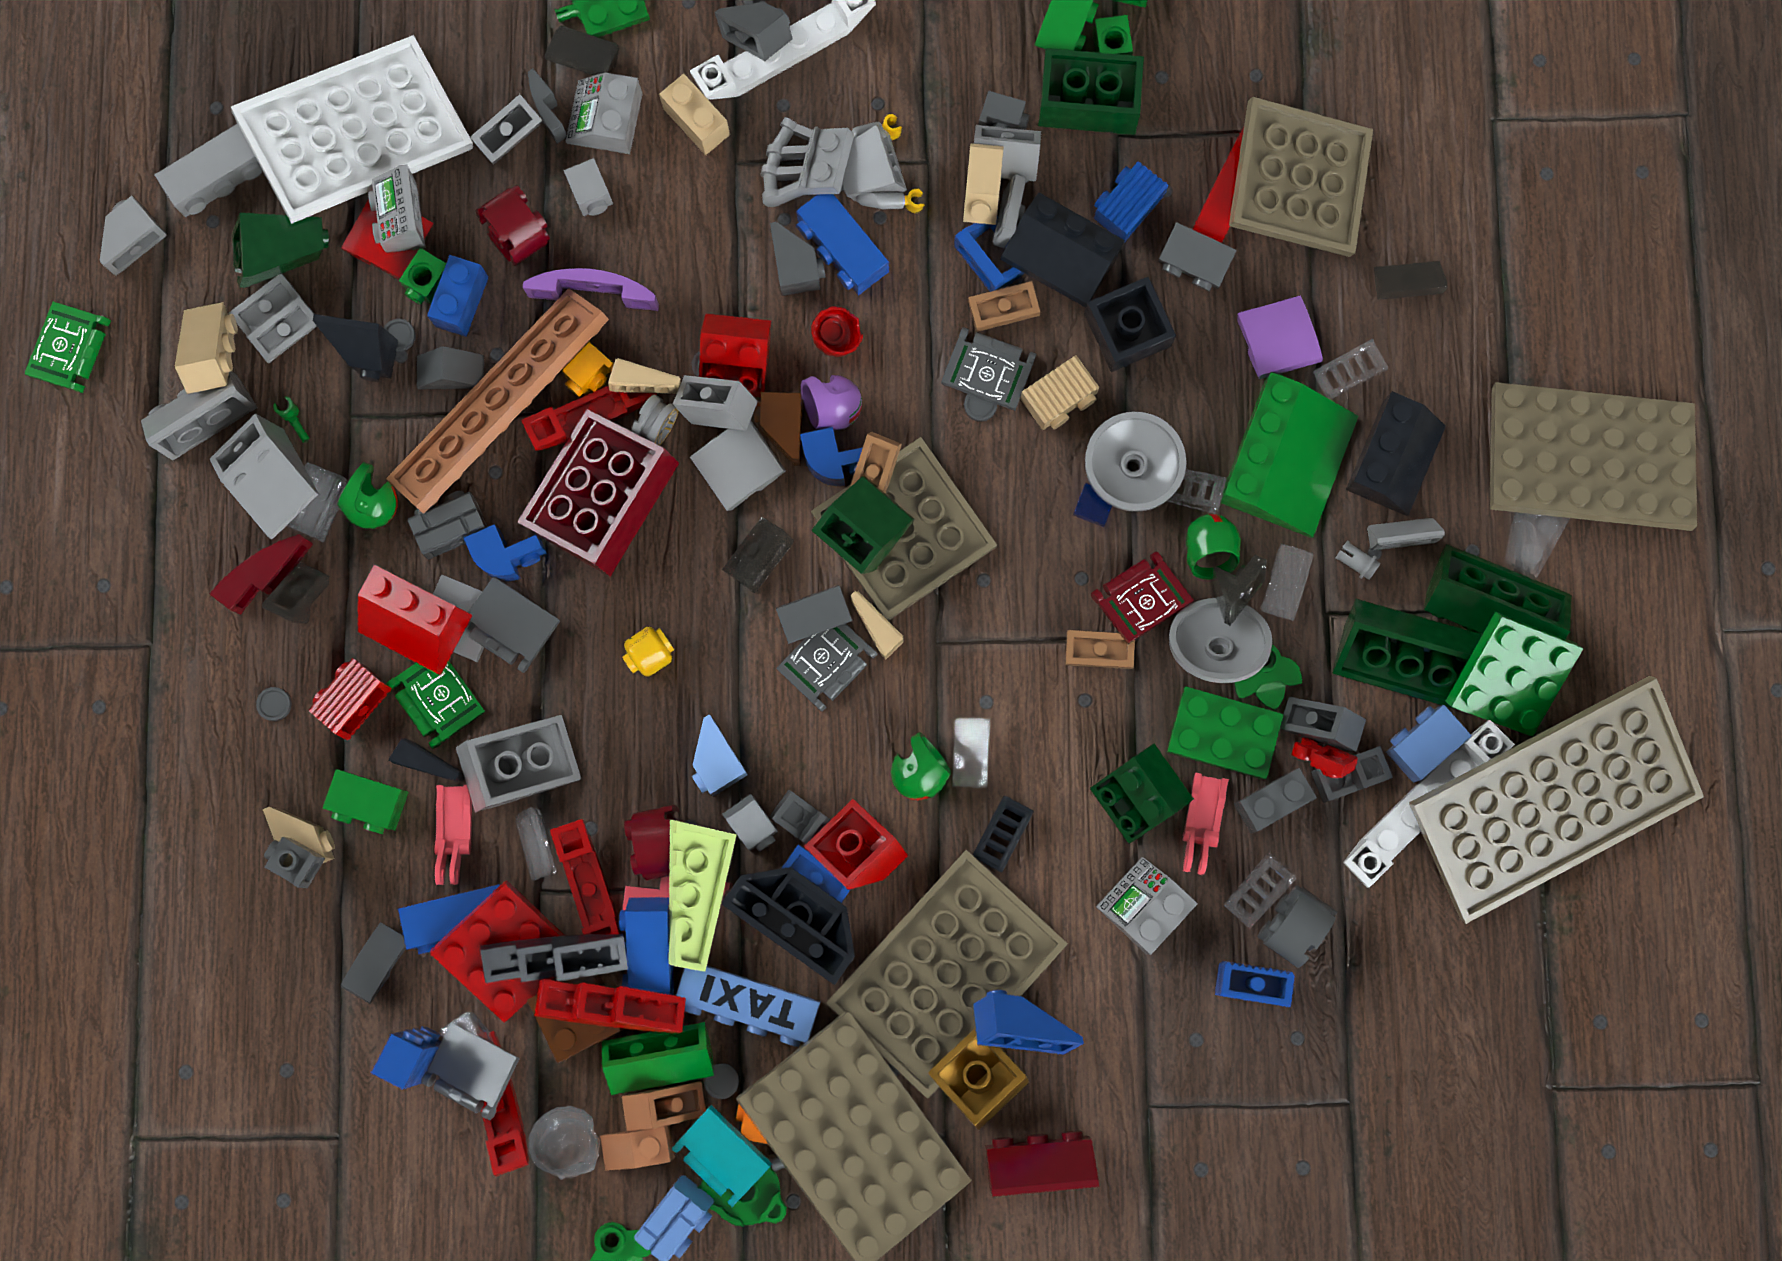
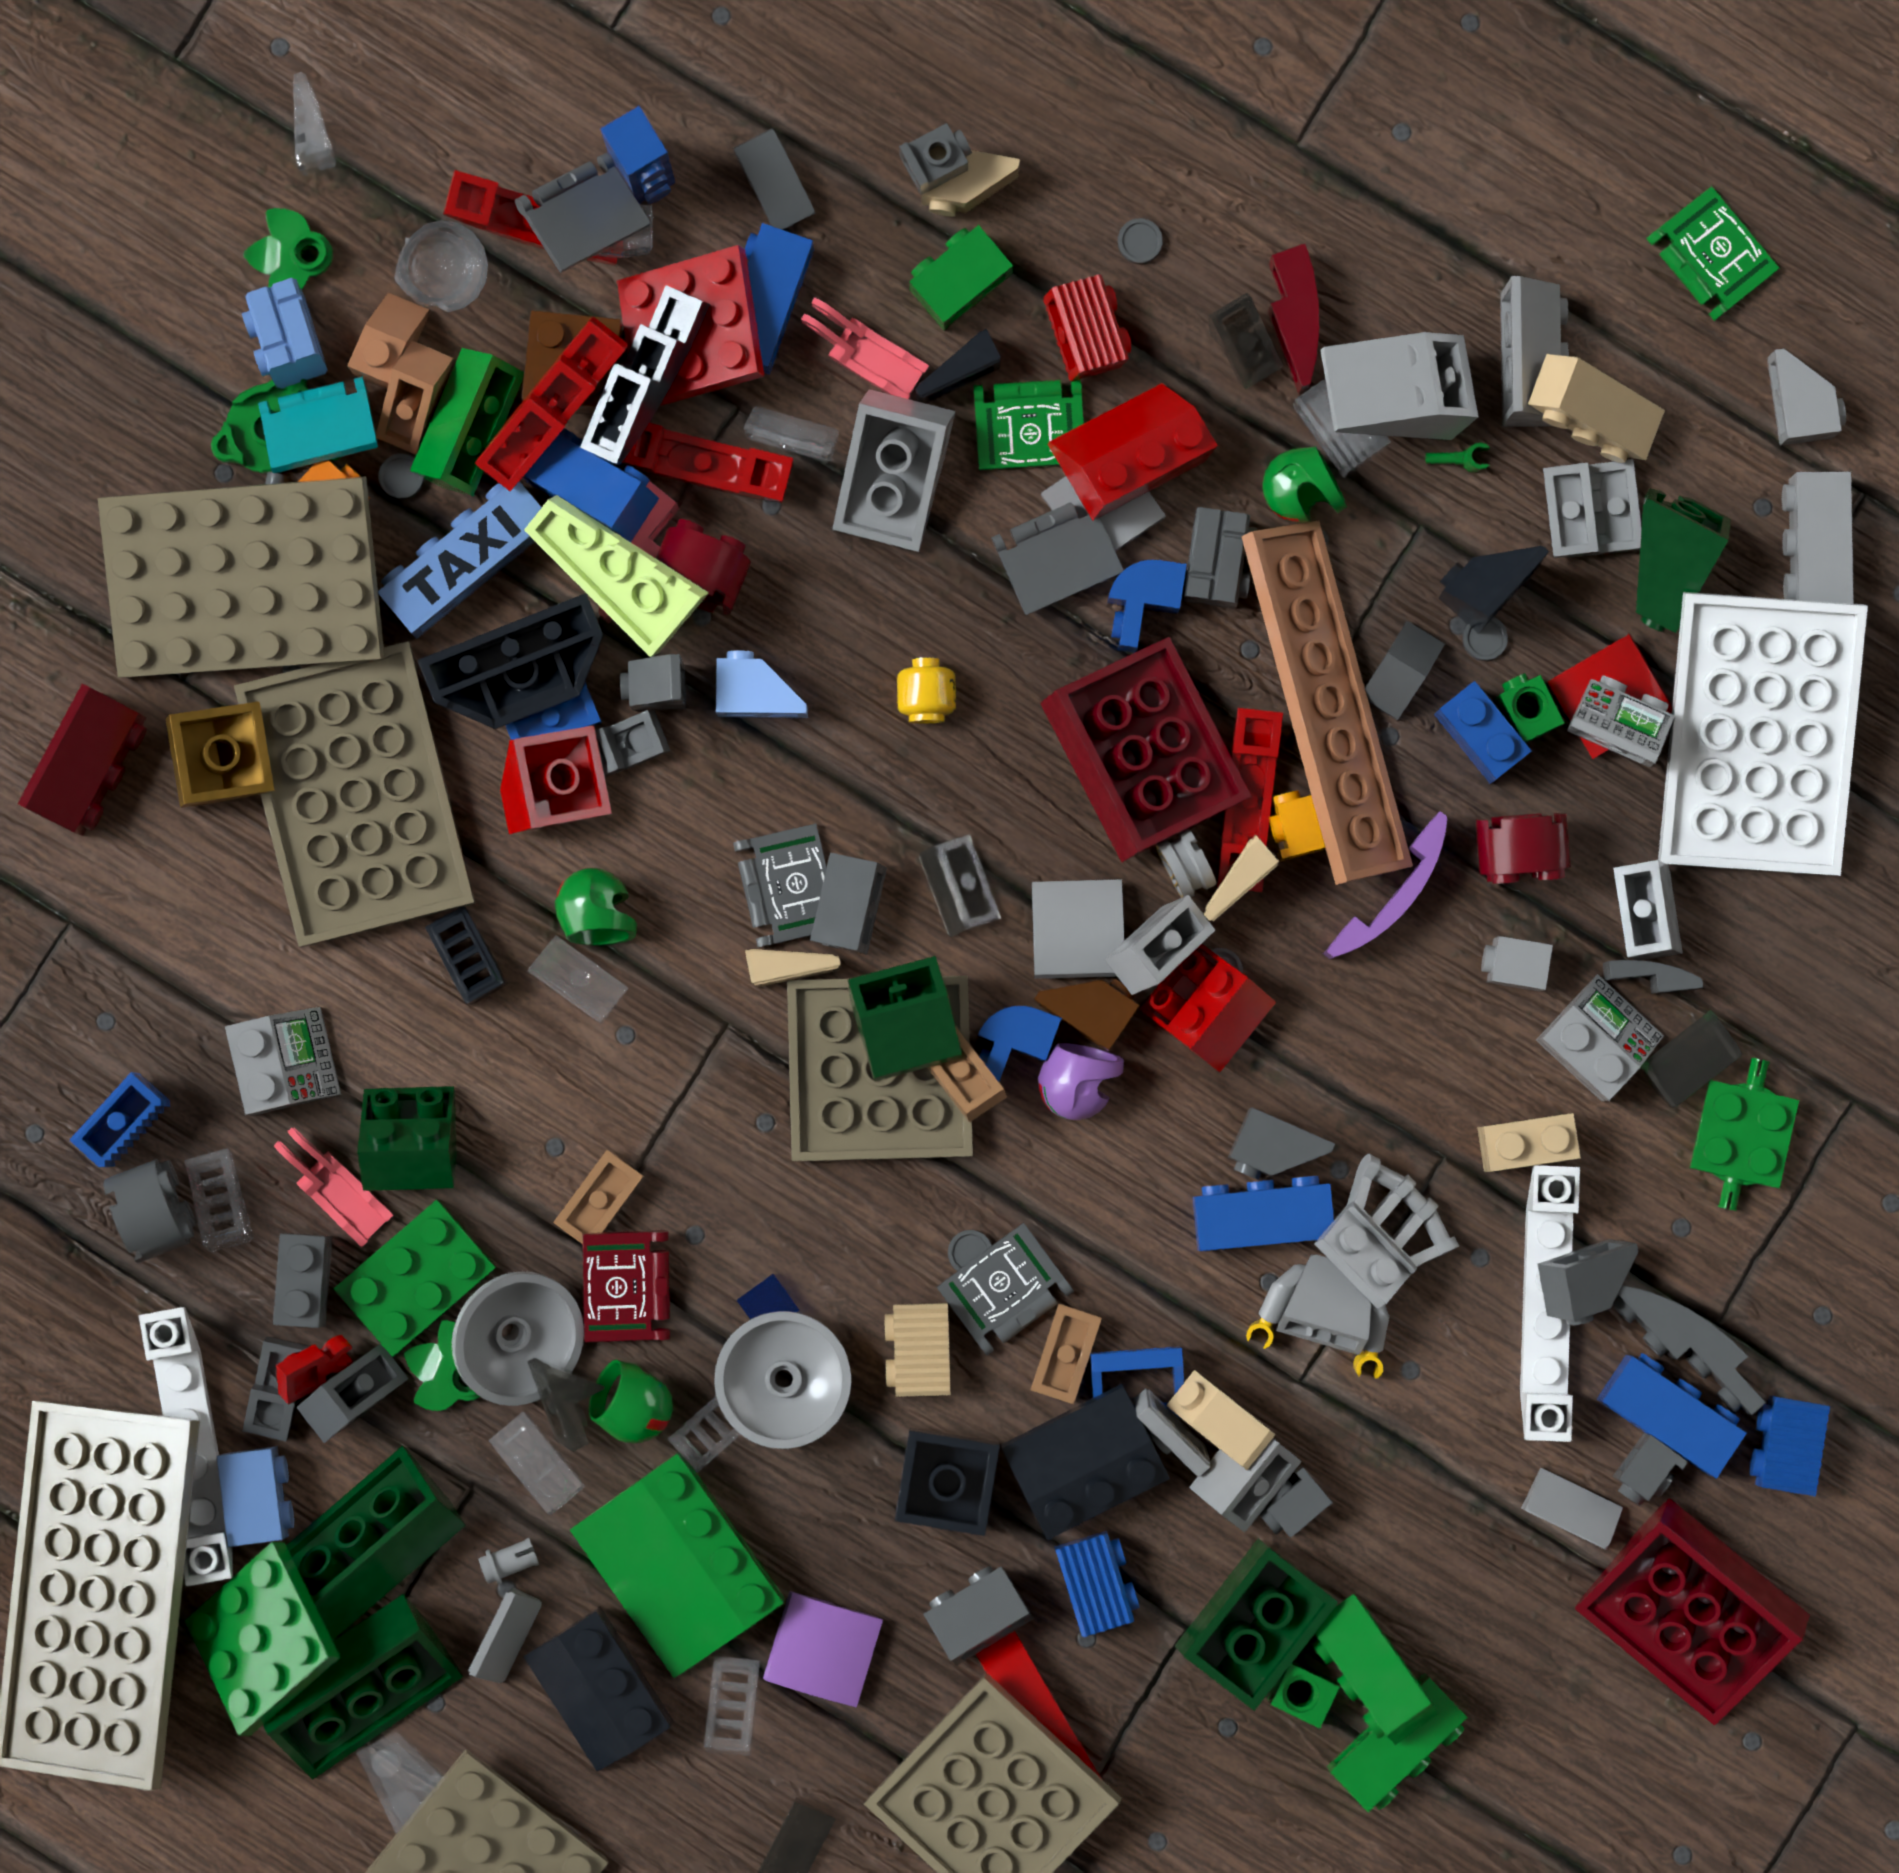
camera: 120 degrees right, 5 degrees up
(836, 331) = (1157, 1139): red hair -> none
(1019, 1024) = (244, 834): blue slope -> none

